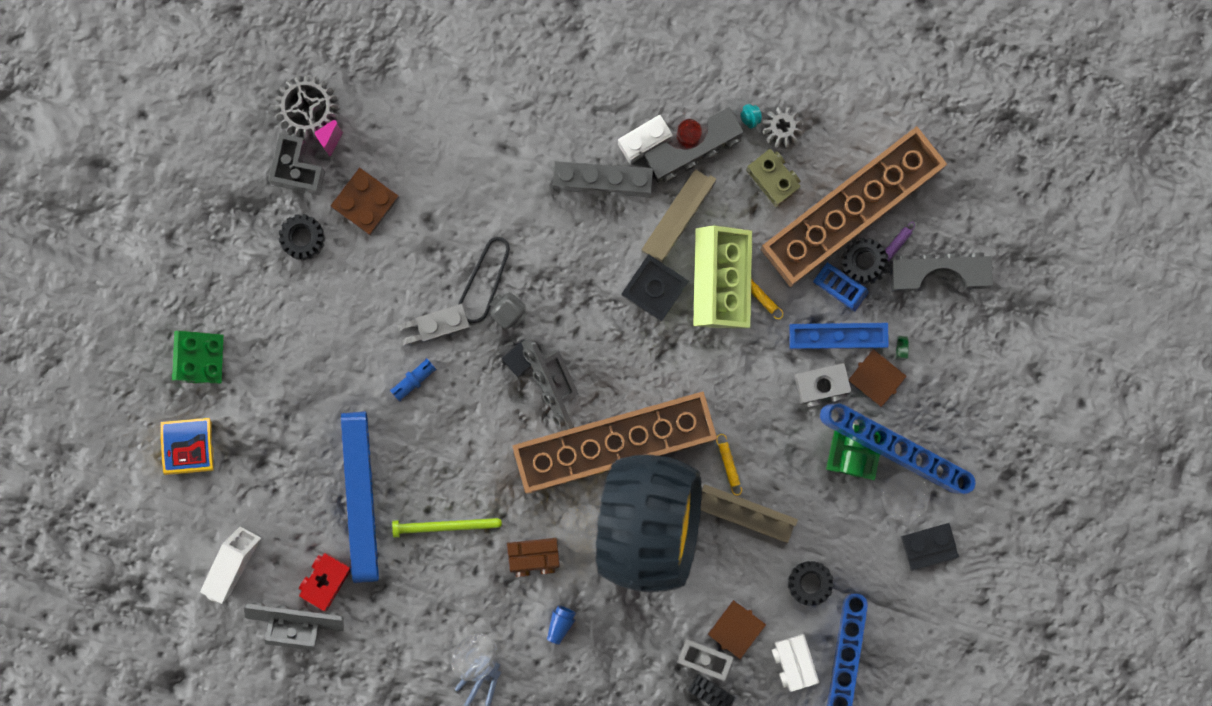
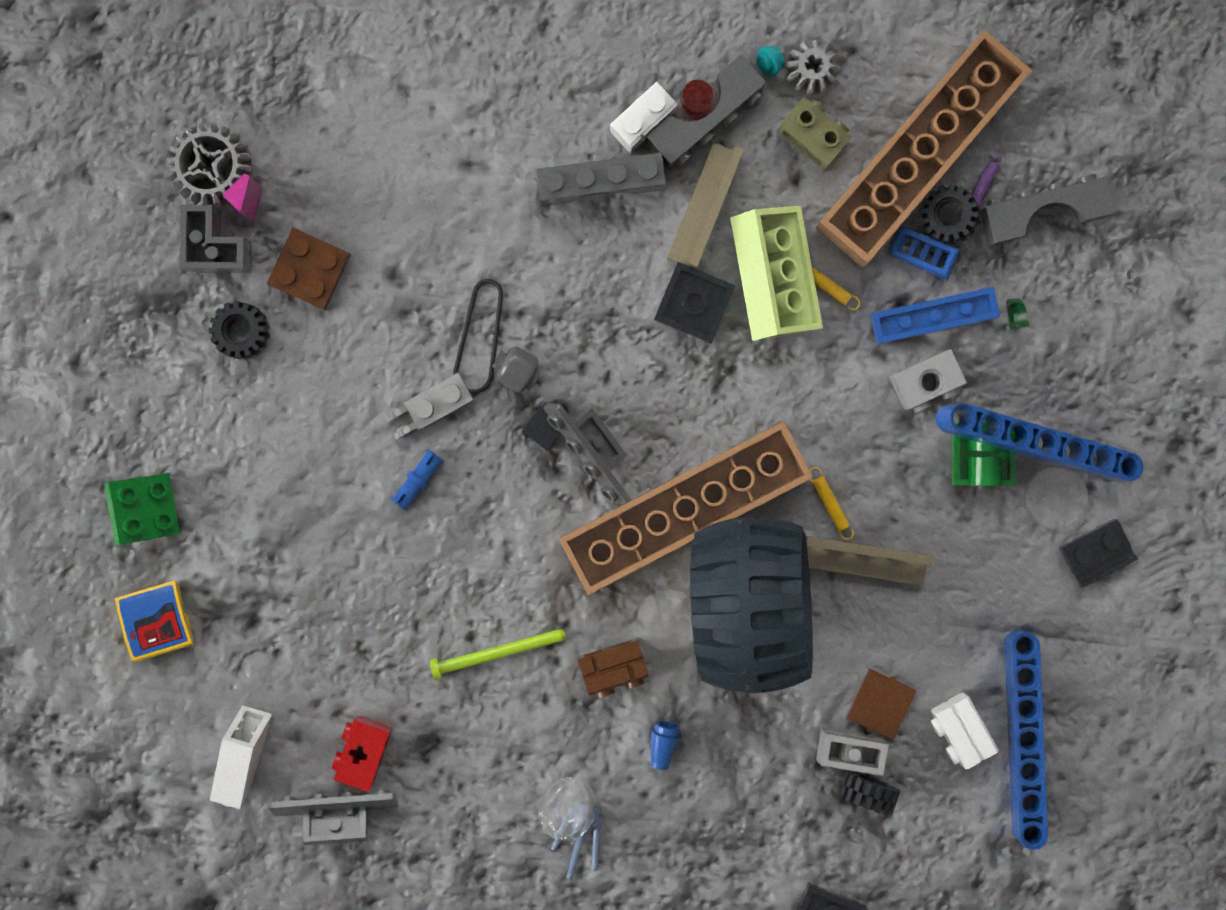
camera: 10 degrees left, 5 degrees up
(359, 497) = (382, 639): blue beam -> none
(821, 572) = (980, 633): black tyre -> none
(877, 378) = (992, 358): reddish brown piece -> none

